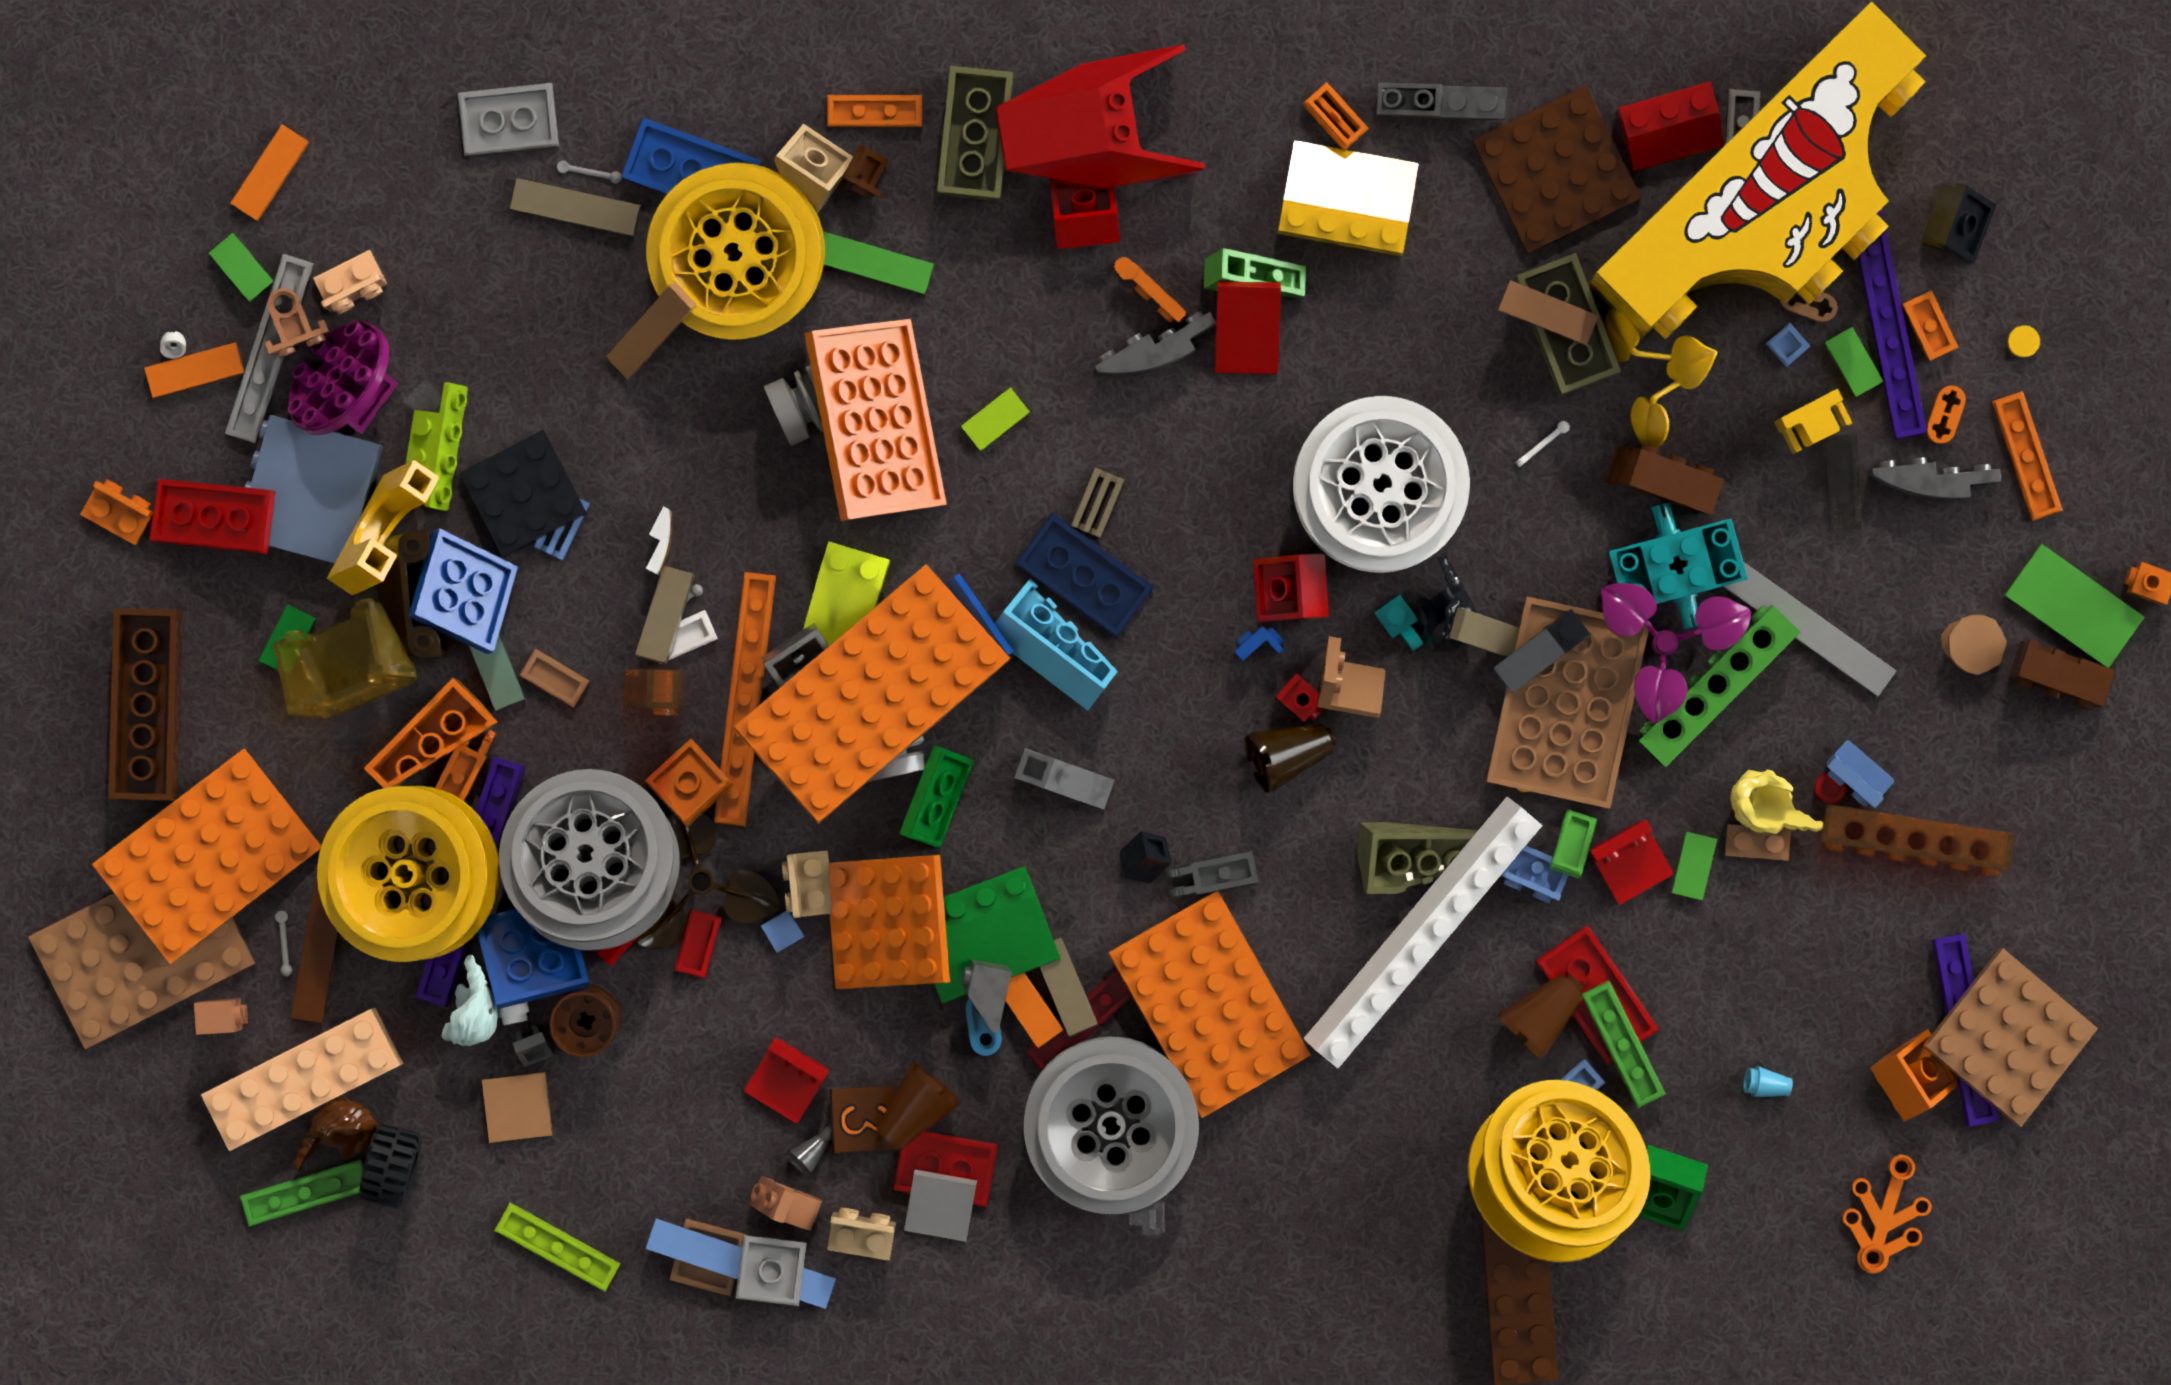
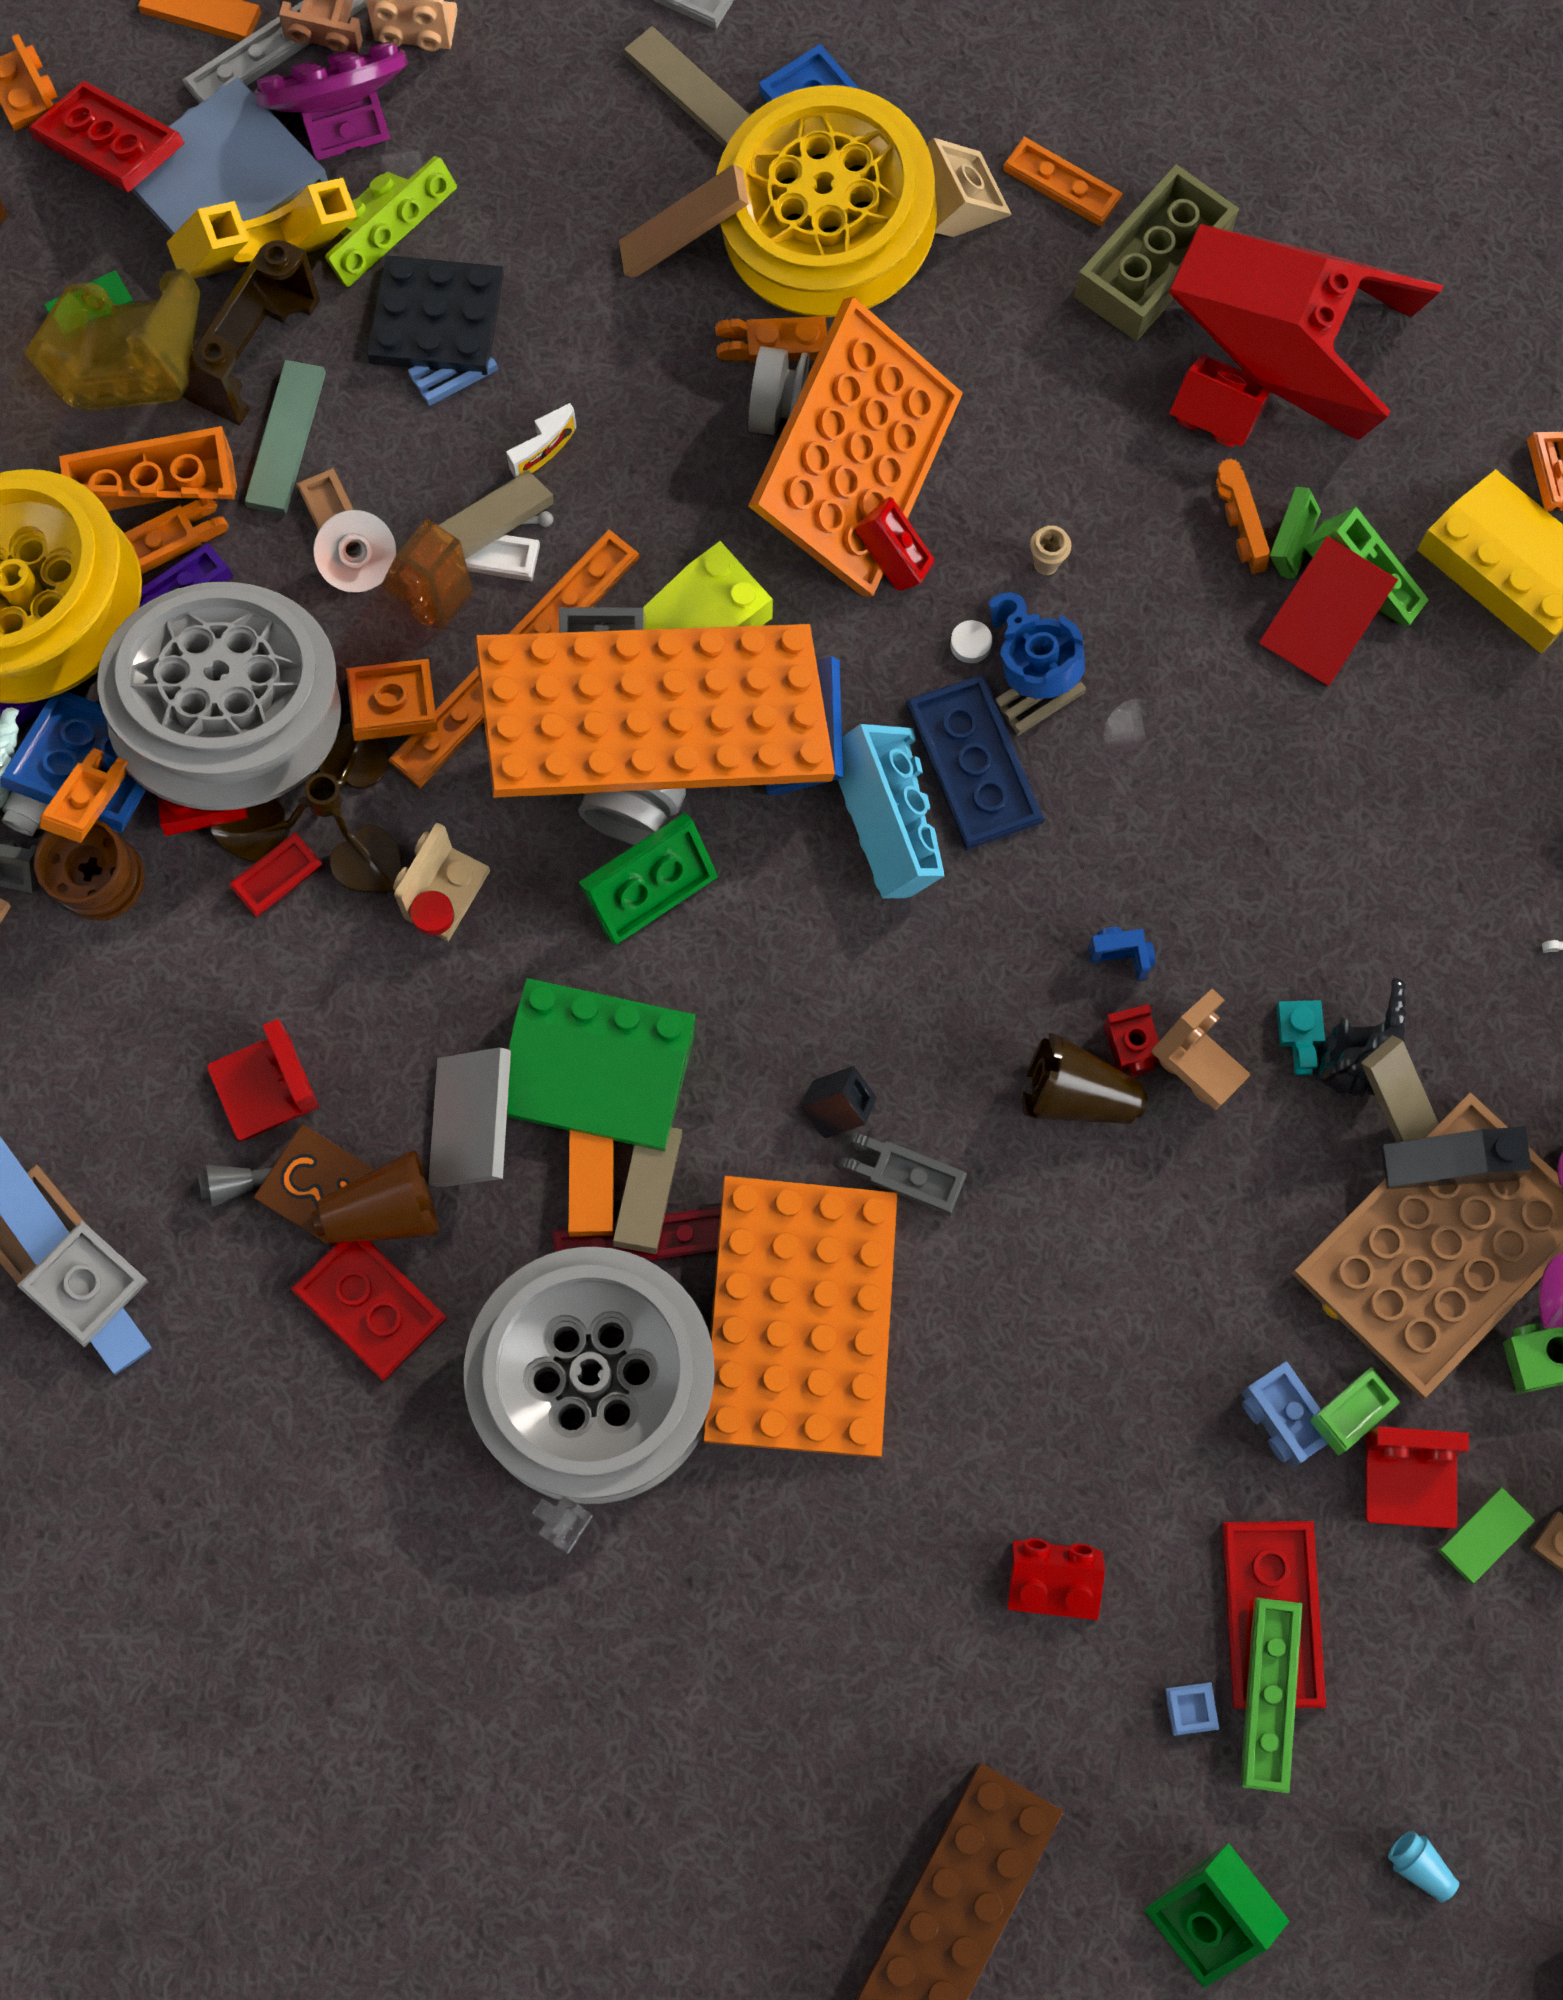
camera: 30 degrees right, 15 degrees down
(463, 591) = (297, 348): plate -> none
(560, 986) = (83, 797): none -> orange hinge
(563, 167) = (706, 48): light grey hinge -> none
(603, 704) = (356, 571): none -> white dish
(762, 360) = (790, 334): none -> orange hinge
(782, 931) = (377, 922): medium blue tile -> none
(785, 1203) = (158, 1221): nougat pin -> none
(816, 906) = (432, 913): none -> red tile
(861, 1235) = (221, 1321): tan bracket -> none
(865, 171) = (1014, 224): reddish brown bracket -> none
(877, 263) = (963, 321): bright green tile -> none
(888, 922) = (499, 977): orange plate -> none
(930, 1022) = (469, 1118): none -> light grey tile
(940, 463) = (895, 545): none -> red slope
(940, 1205) = (330, 1341): light grey tile -> none
(976, 1028) = (527, 1169): dark azure plate -> none
(987, 989) = (554, 1122): flat silver slope -> none
(995, 419) = (985, 545): lime tile -> none
(1029, 494) = (971, 641): none -> white tile
(1038, 393) = (1049, 549): none -> tan cone
(1064, 778) = (803, 952): flat silver slope -> none
(1067, 476) = (1038, 654): none -> blue piece
(1144, 355) = (1194, 577): flat silver slope -> none
(1163, 487) = (1124, 725): none -> clear tile
(1192, 279) = (1295, 532): none -> bright green tile
(1291, 587) = (1201, 913): red slope -> none
(1326, 500) = (1325, 907): white wheel -> none
(1405, 854) = (1145, 1296): olive wedge -> none
(1422, 932) = (1110, 1394): white brick -> none
(1458, 1058) = (1056, 1579): none -> red bracket
(1509, 1180) = (1049, 1805): yellow wheel -> none
(1543, 1013) = (1196, 1588): reddish brown cone -> none

